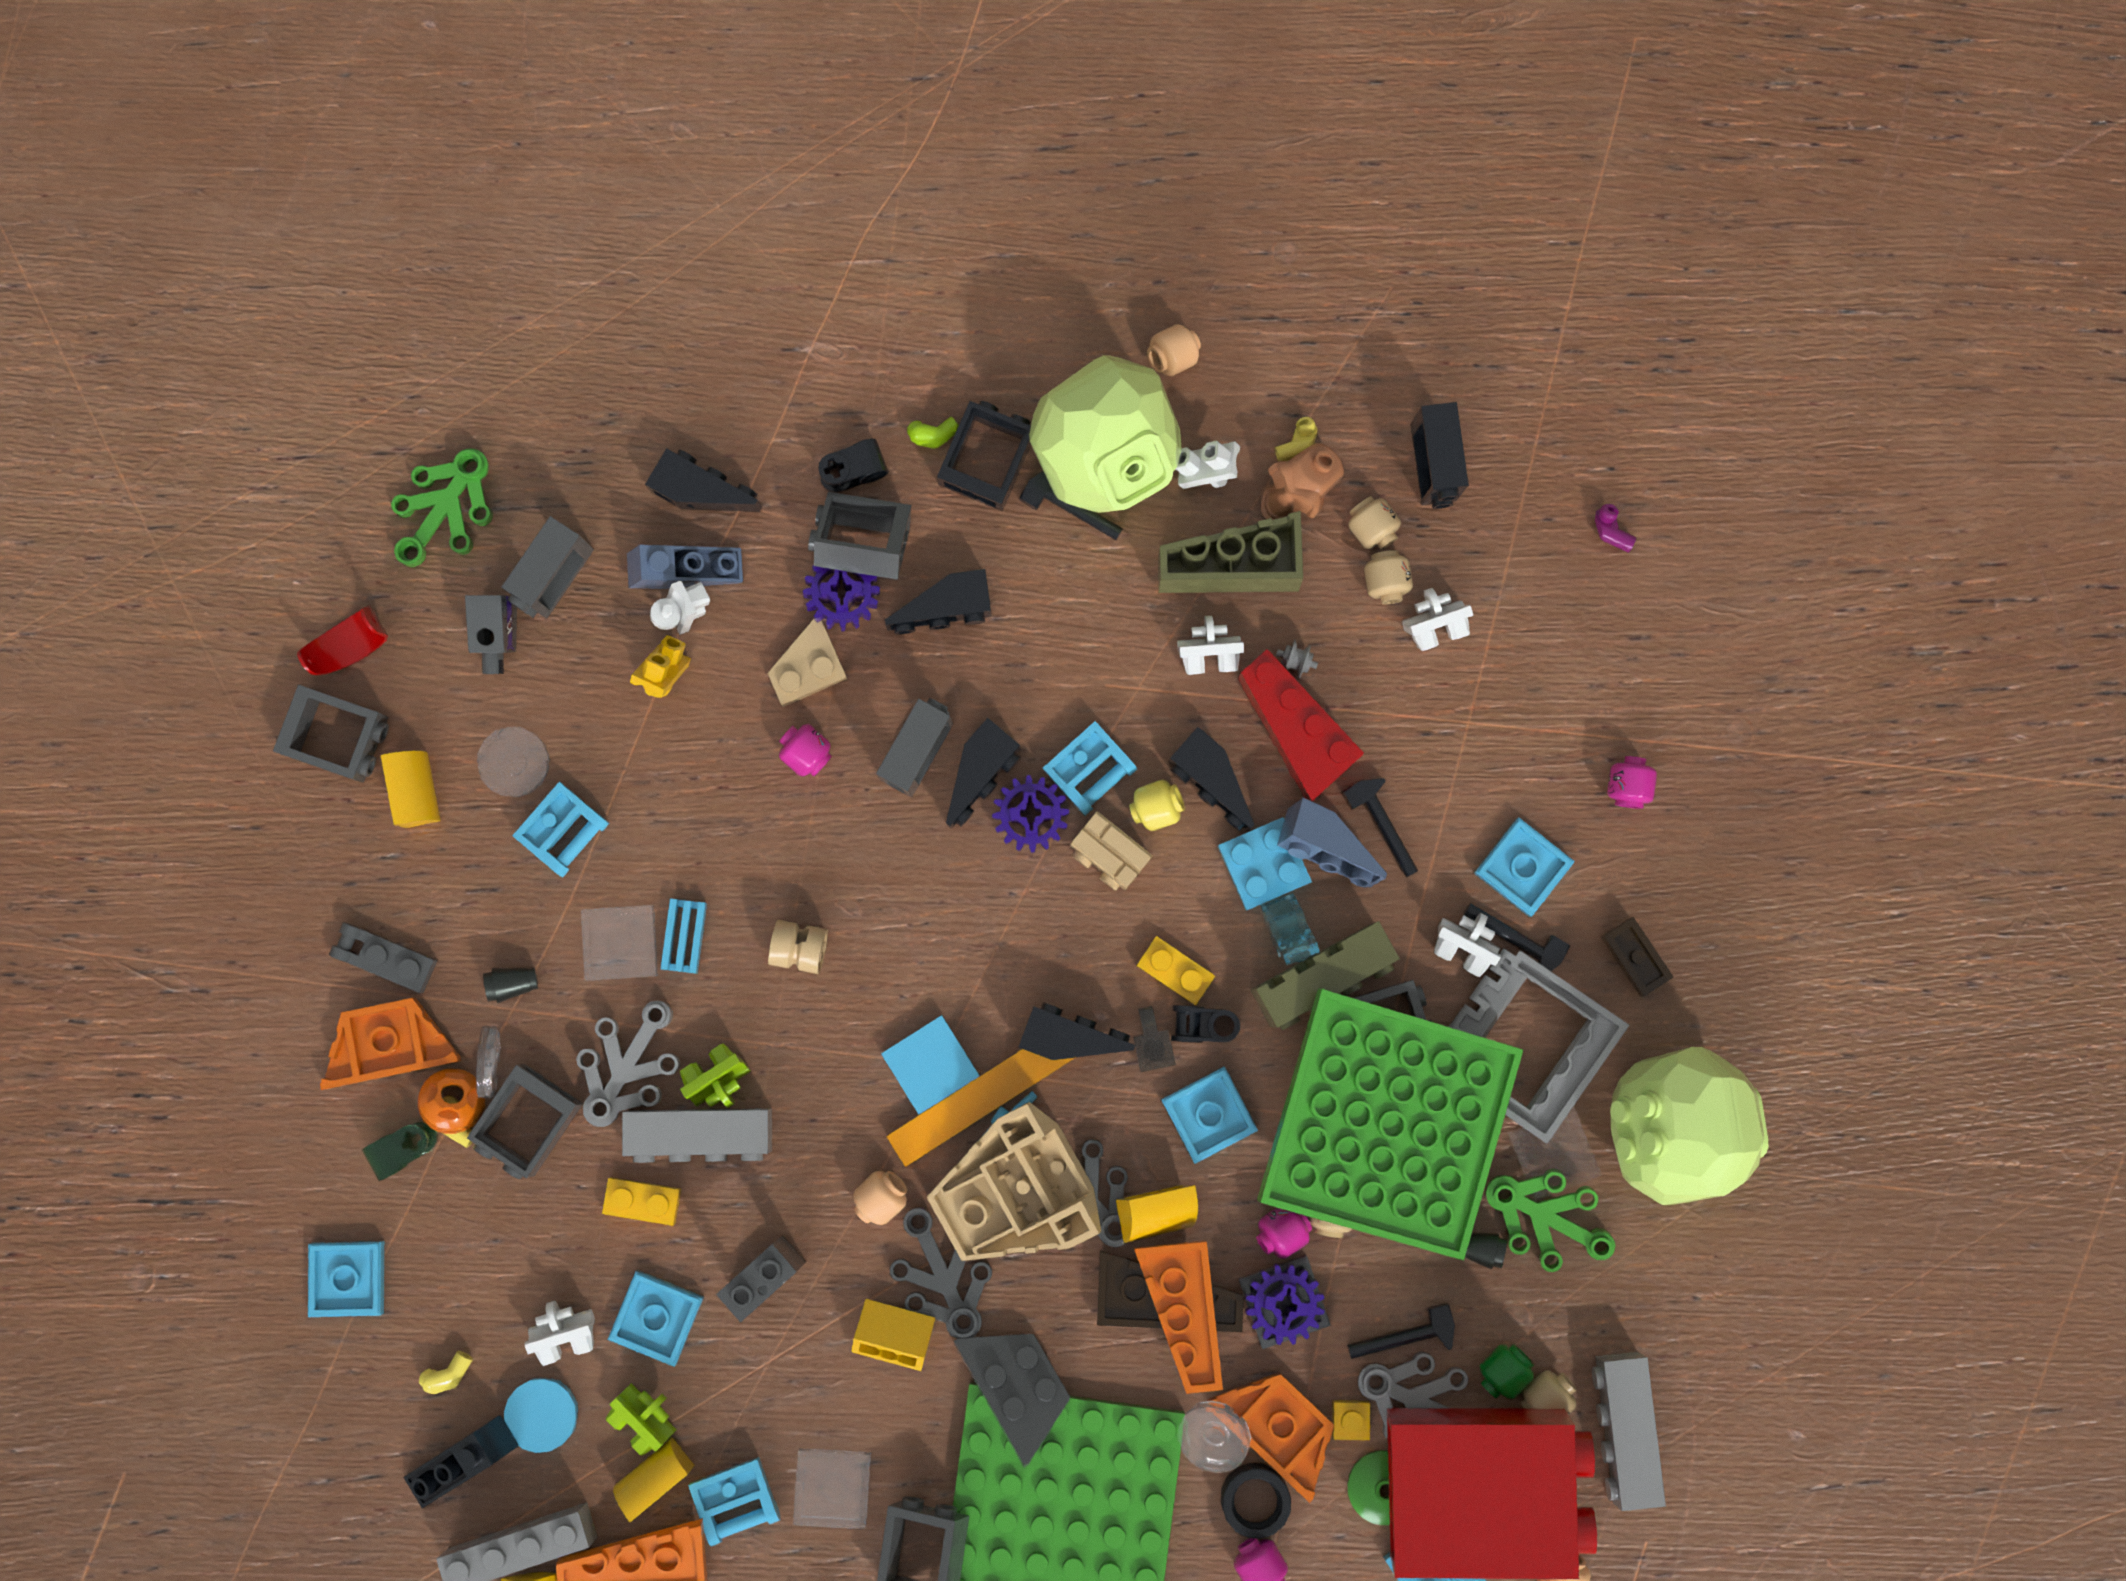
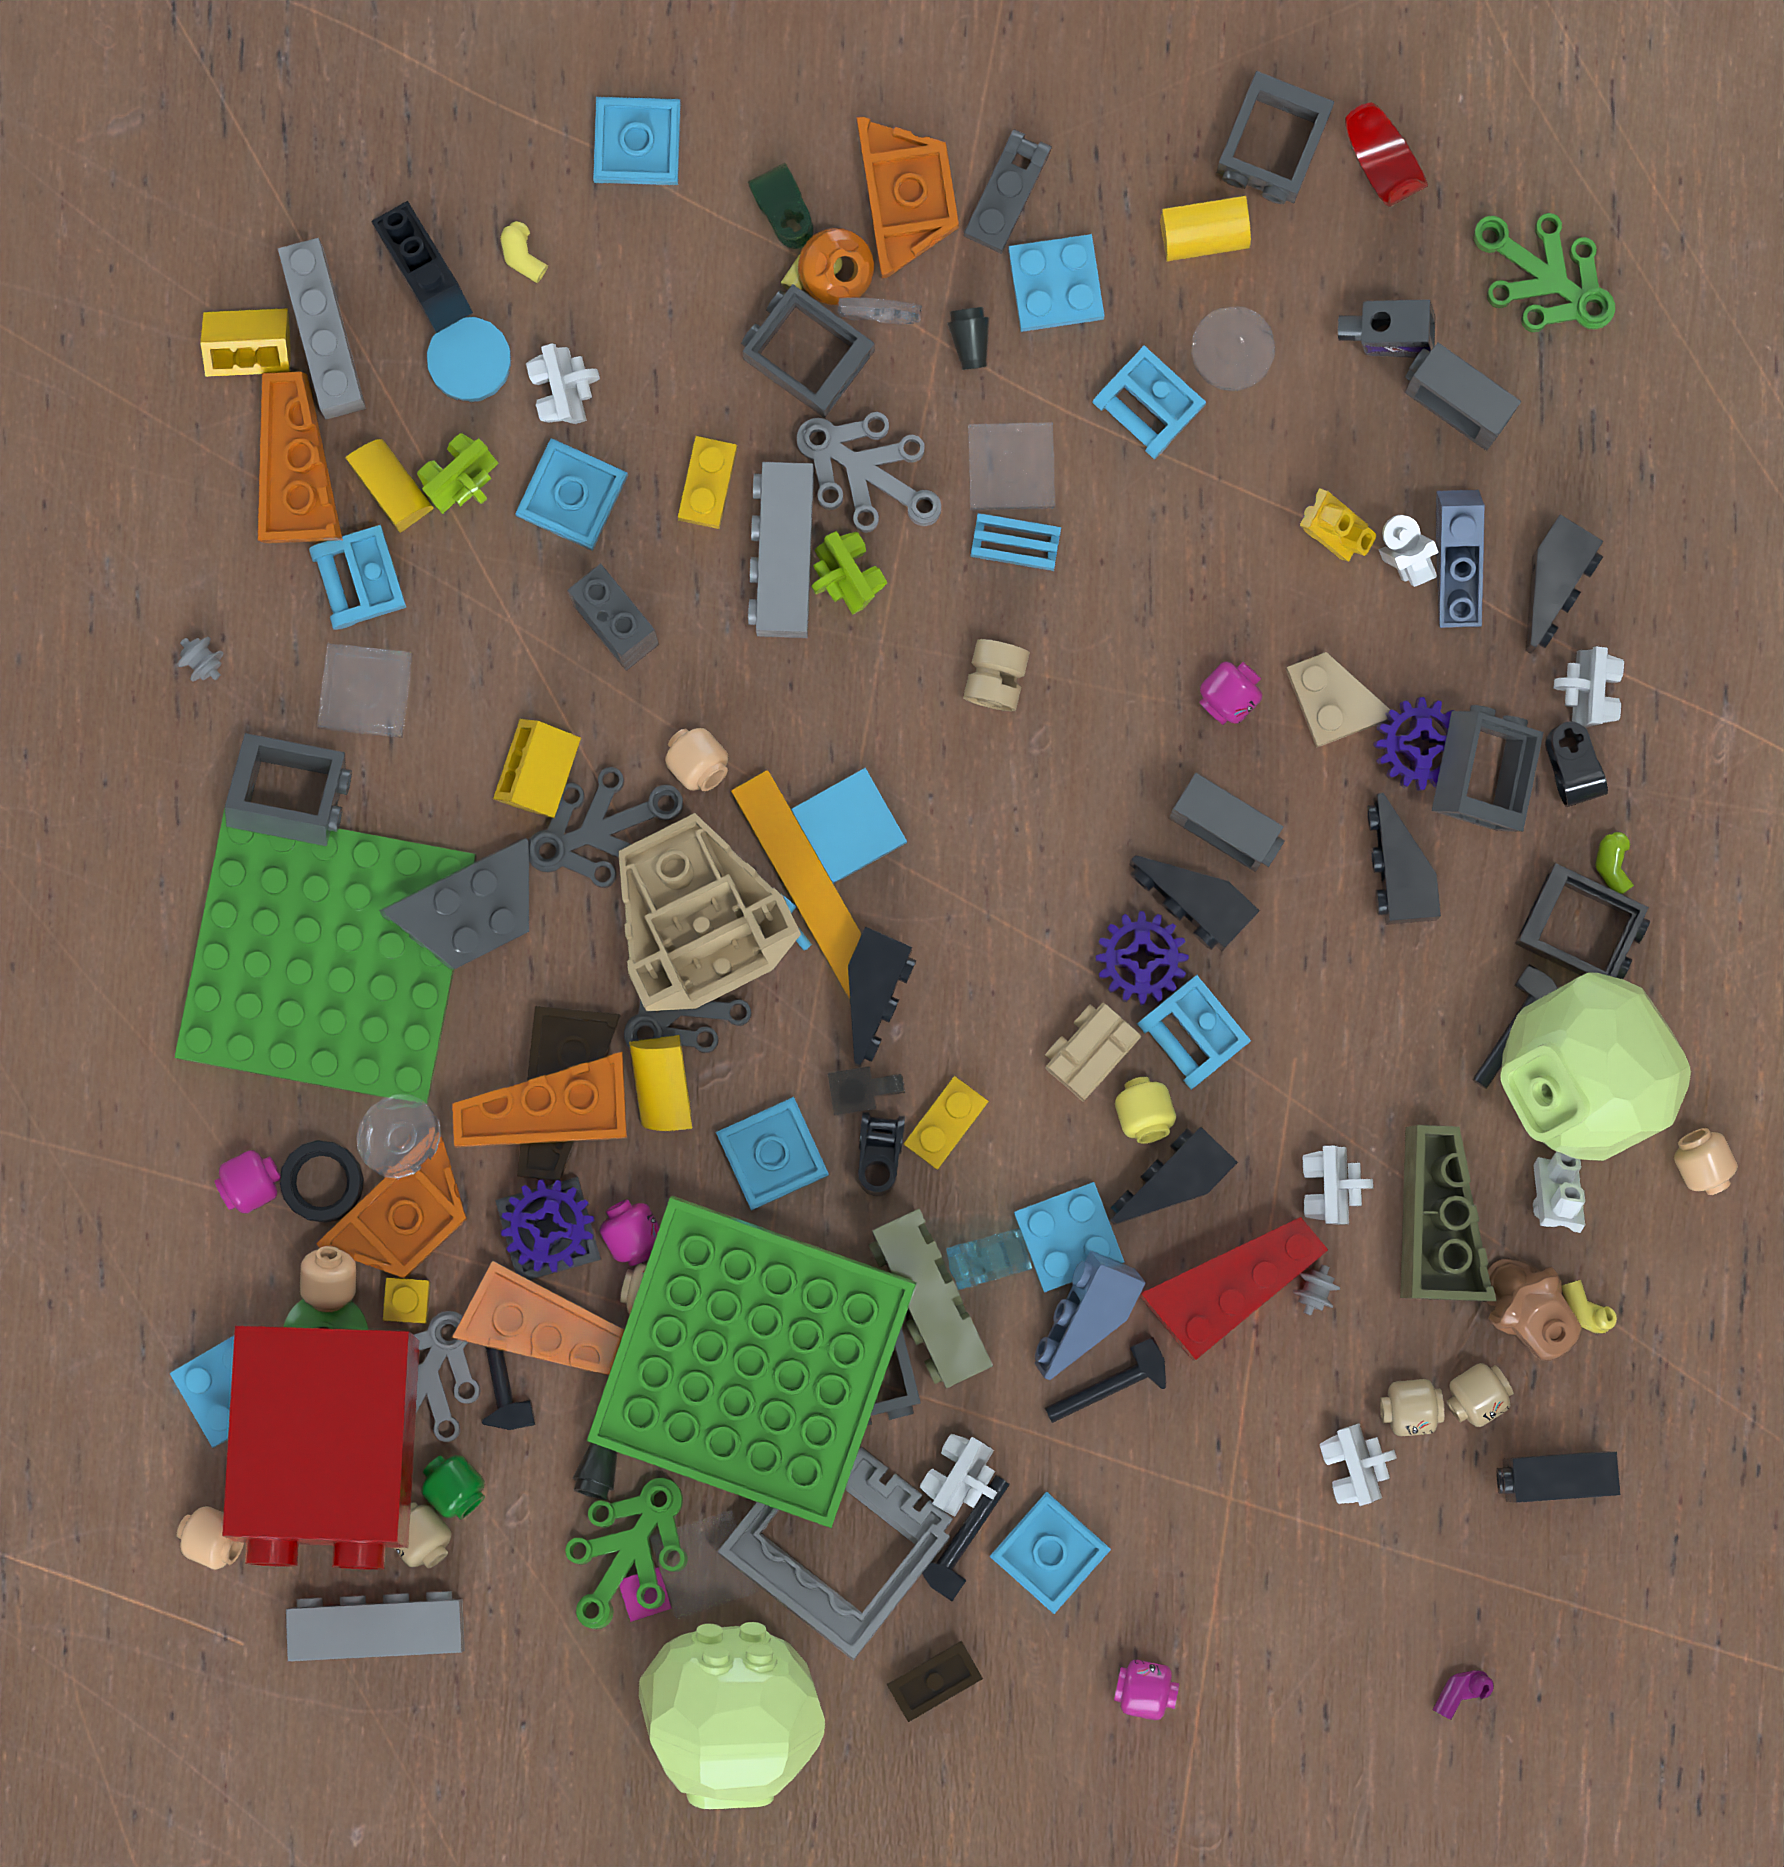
camera: 95 degrees right, 0 degrees up
(461, 912) = (1056, 282): none -> medium azure plate
(788, 458) = (1586, 686): none -> white hips
(1339, 1491) = (328, 1279): none -> light nougat head
(1365, 1308) = (537, 1323): none -> orange wing
(1579, 1215) = (629, 1589): none -> dark pink tile

